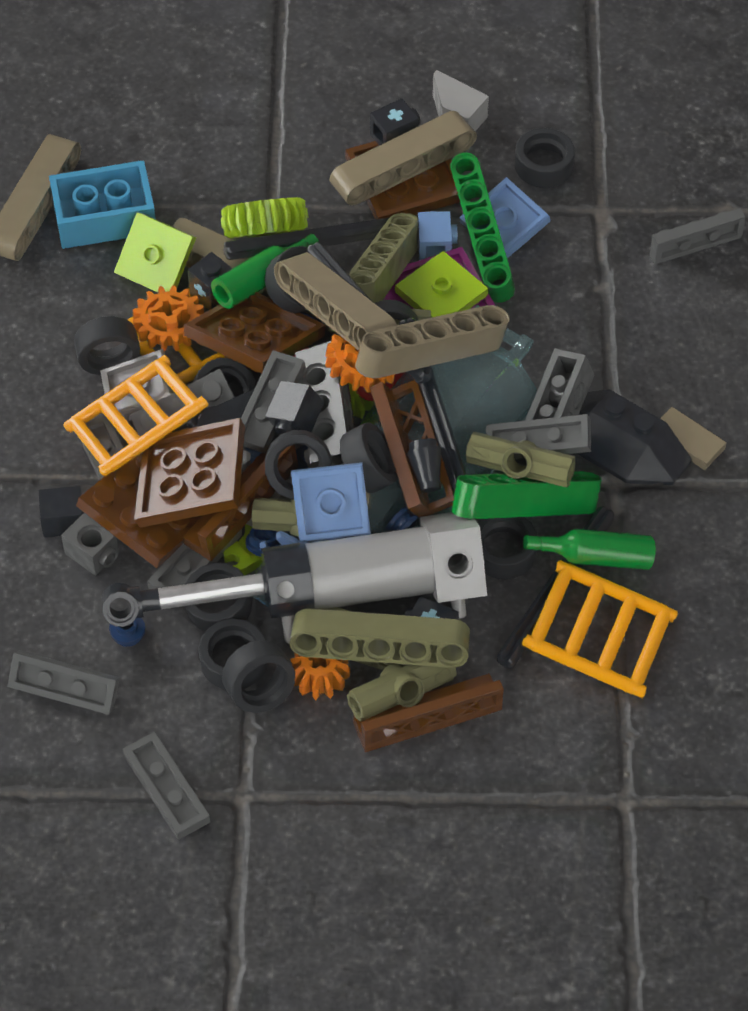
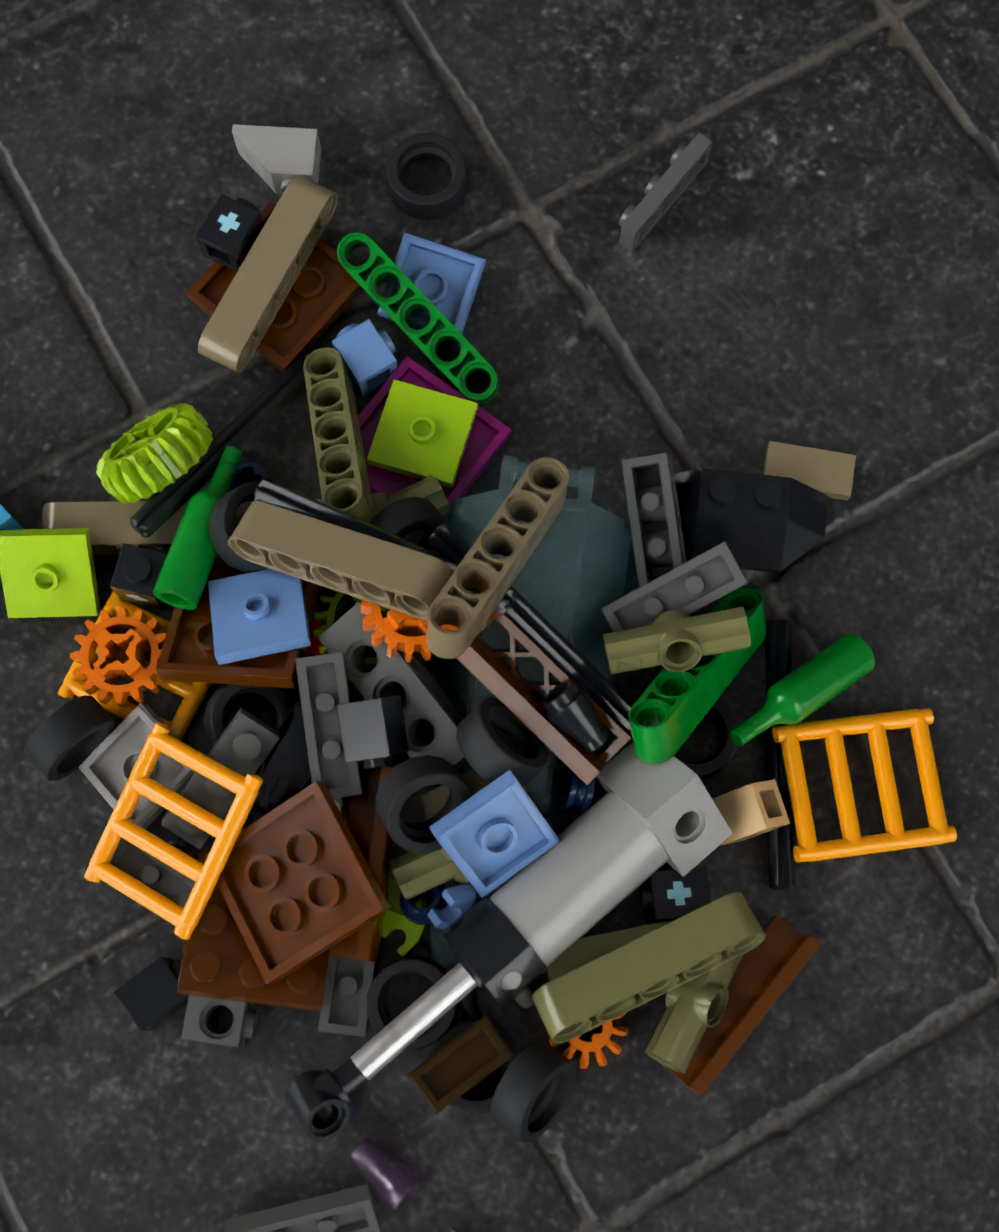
camera: 30 degrees left, 20 degrees up
(135, 687) = (386, 1174): none -> clear purple cone
(220, 636) = (460, 1064): none -> dark brown tile
(268, 325) = (257, 615): none -> medium blue plate
(509, 599) = (752, 810): none -> tan brick

